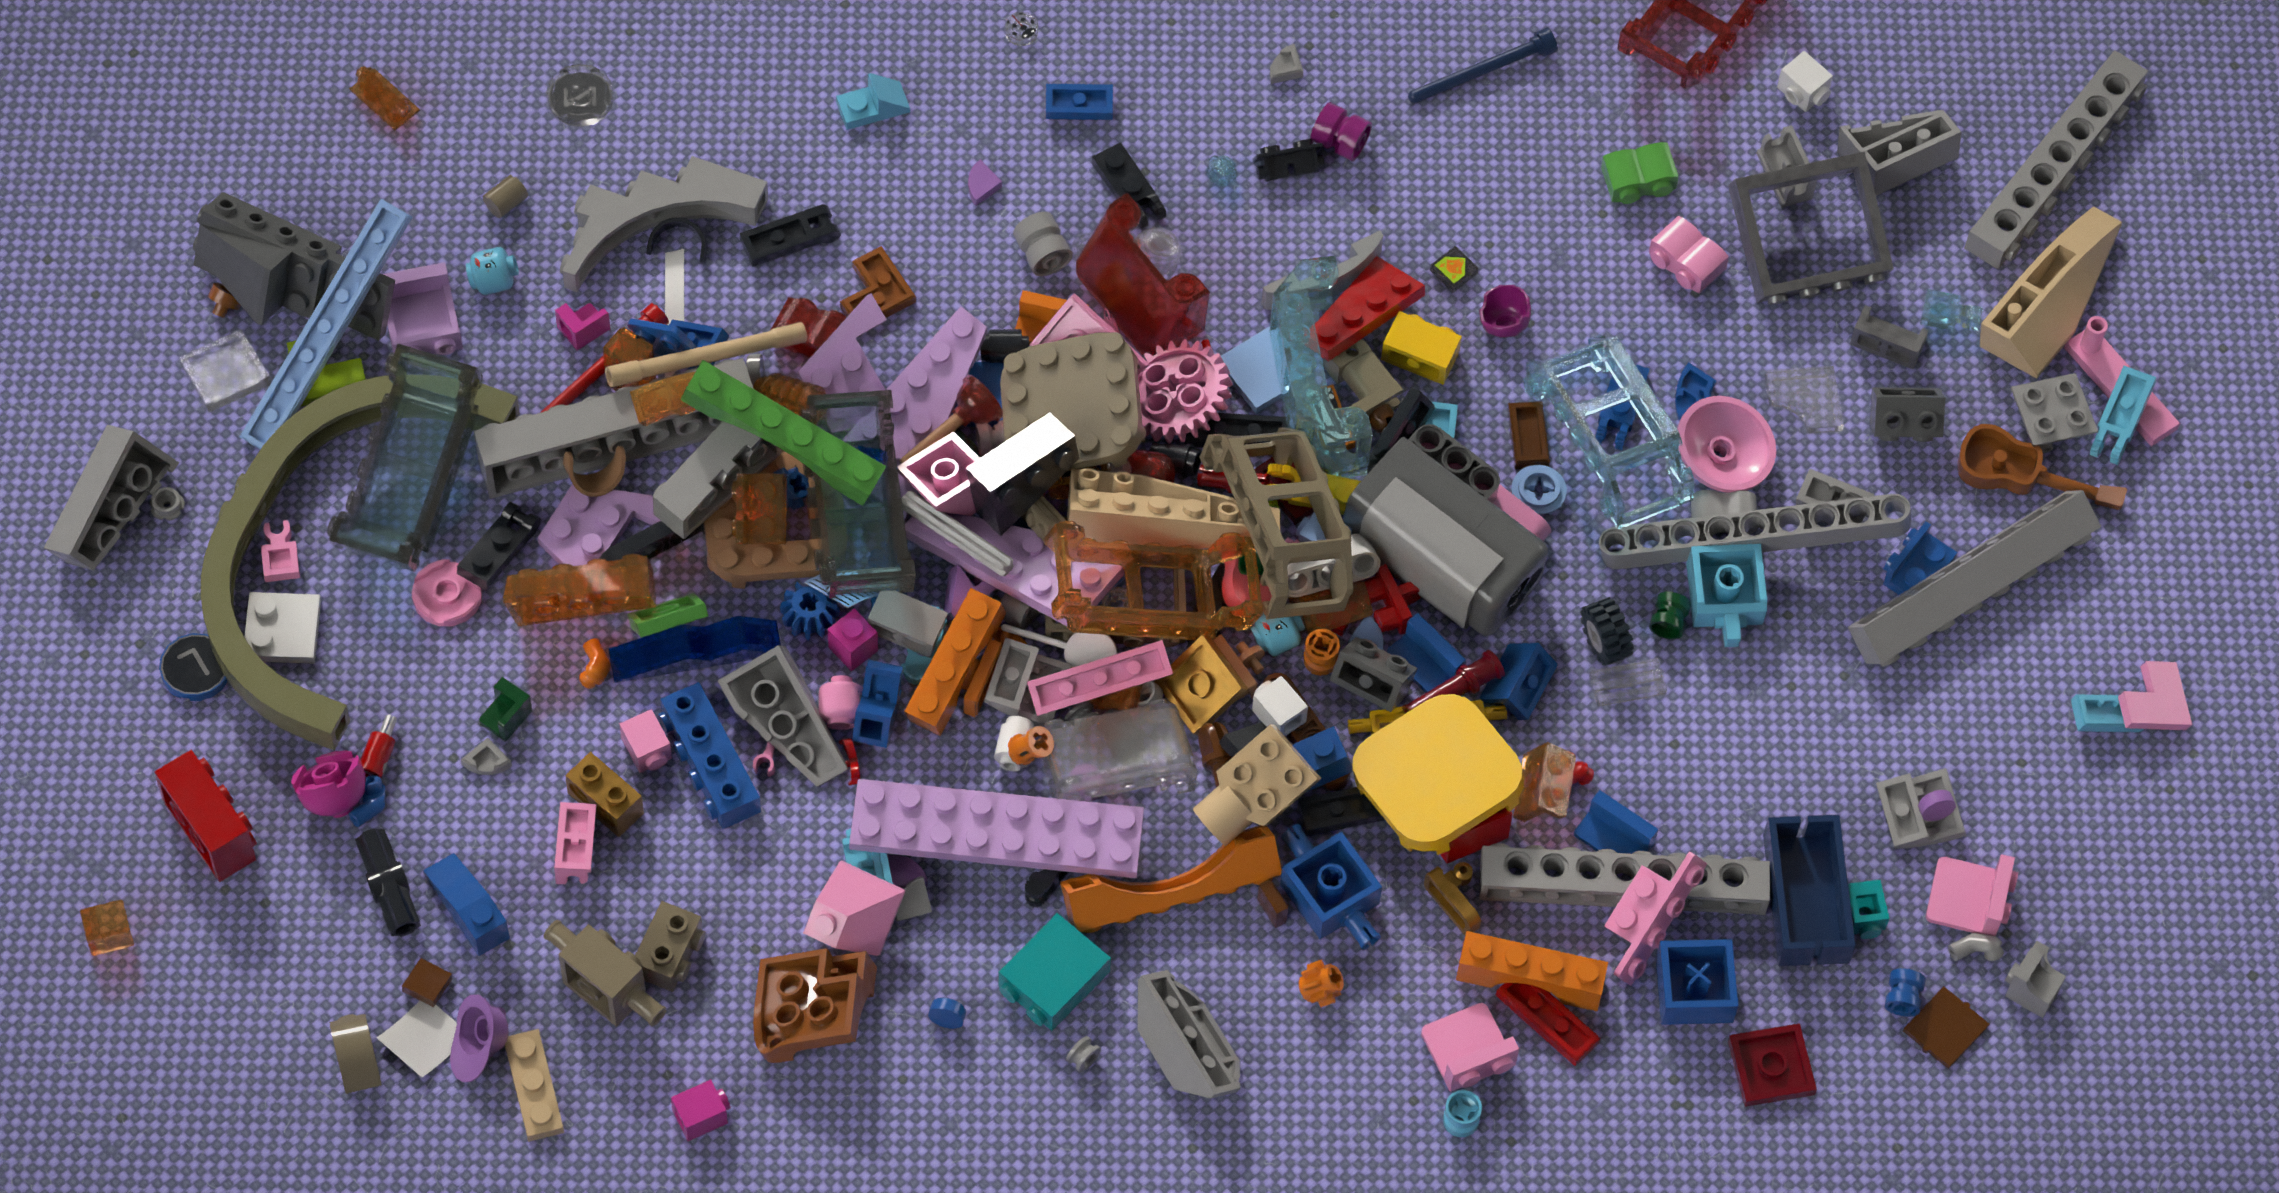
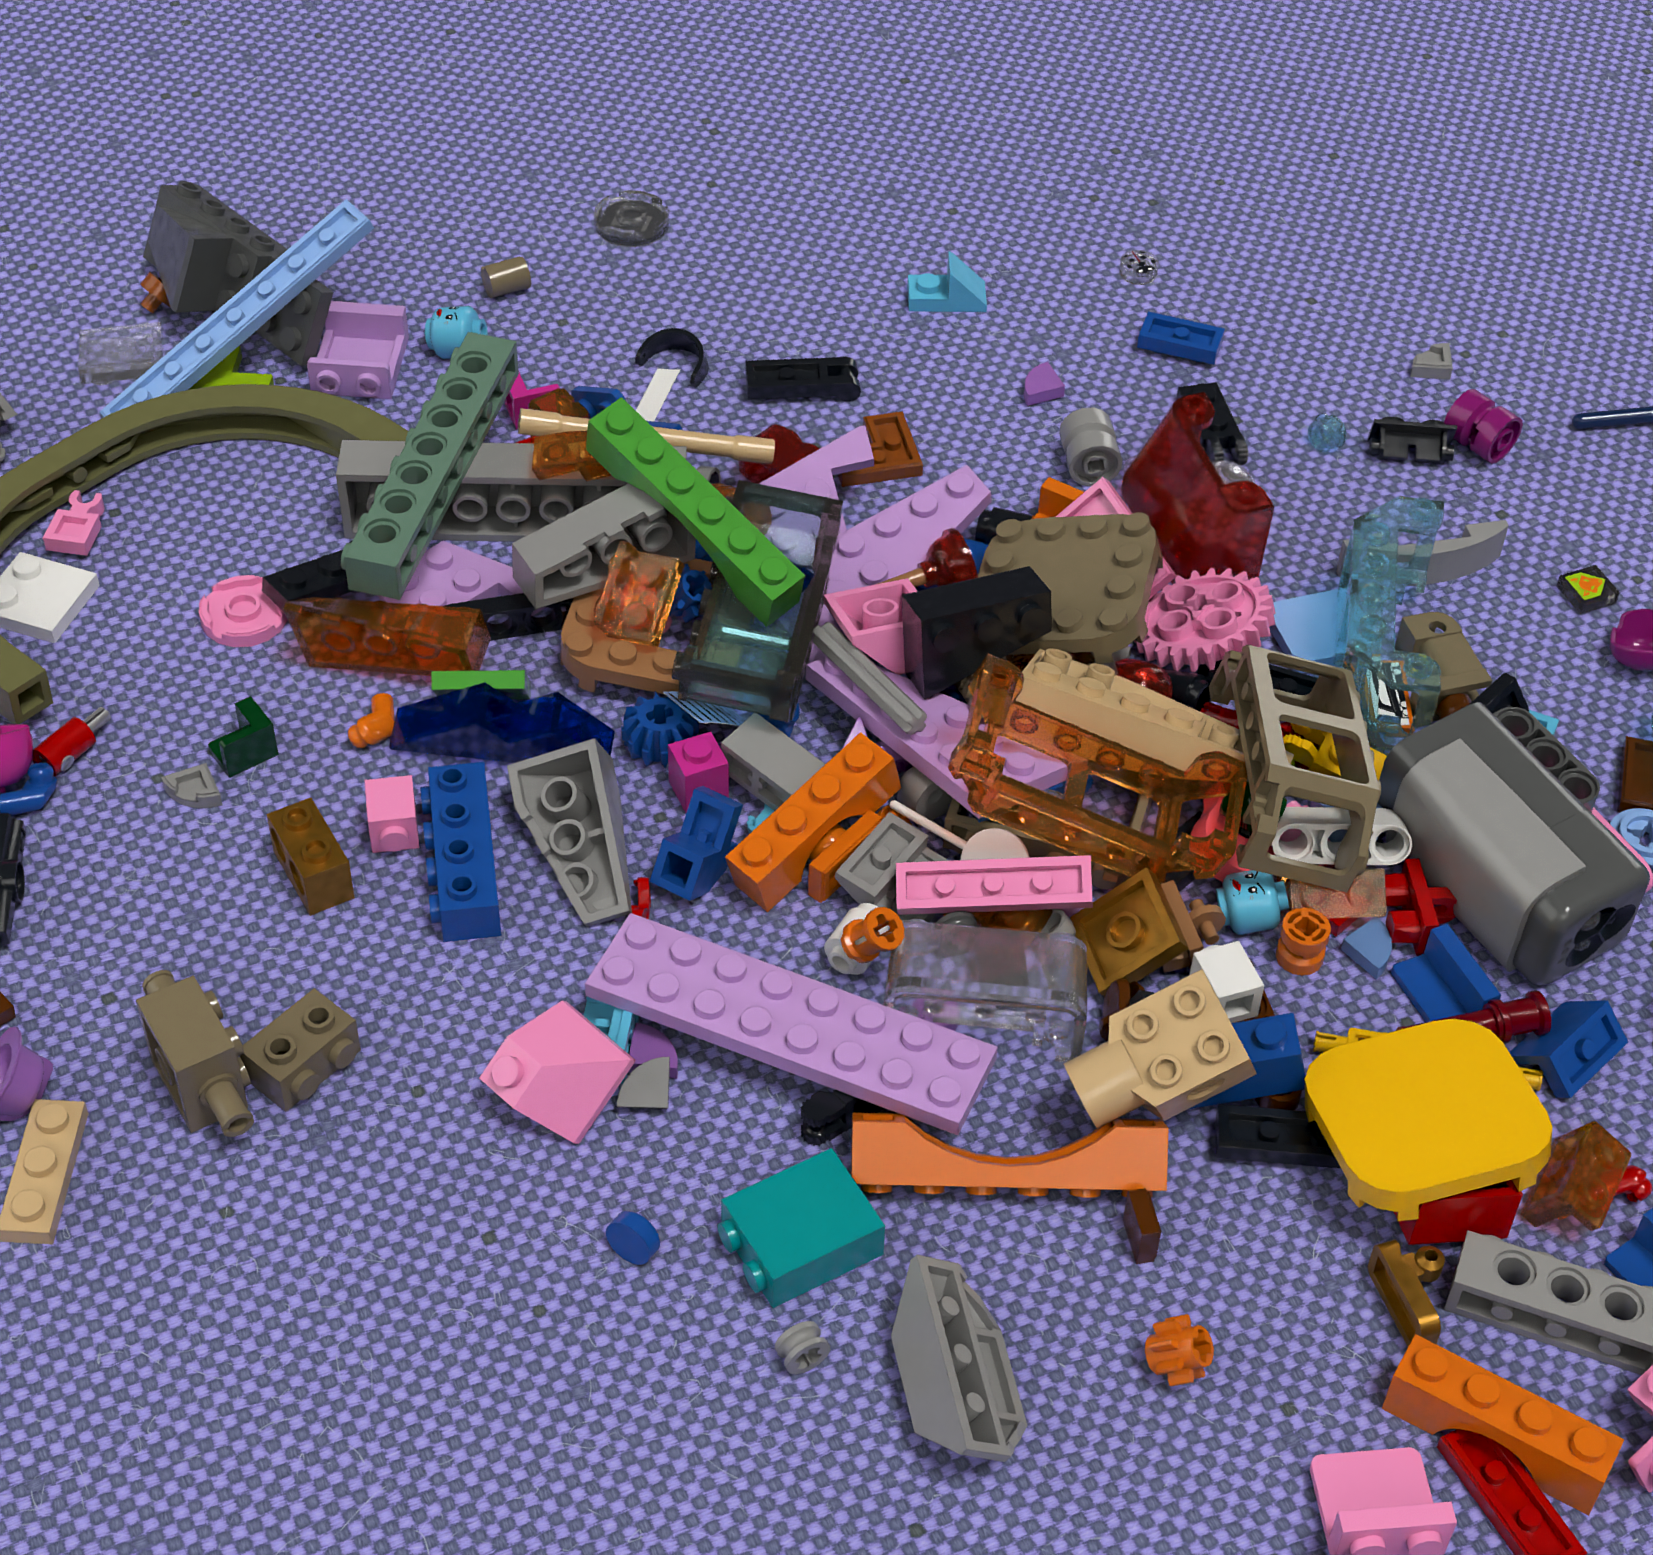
camera: 20 degrees right, 15 degrees down
(383, 97) = (422, 172): clear orange hinge -> none
(410, 458) = (267, 460): windscreen -> none
(468, 904) = (79, 938): blue slope -> none
(567, 549) = (430, 466): none -> sand green brick
(574, 841) = (241, 895): bright pink hinge -> none
(601, 481) = (476, 546): medium nougat helmet -> none
(699, 192) = (613, 319): light grey arch -> none
(700, 1109) = (240, 1263): dark pink brick -> none
(766, 757) = (532, 874): bright pink hand -> none
(810, 1001) = (451, 1165): dark orange slope -> none
(839, 702) = (645, 831): bright pink head -> none
(1331, 886) = (1232, 1224): blue brick -> none
(1366, 305) = (1467, 589): red wing -> none
(1373, 673) = (1366, 980): dark grey brick -> none
(1421, 347) = (1528, 650): yellow brick -> none

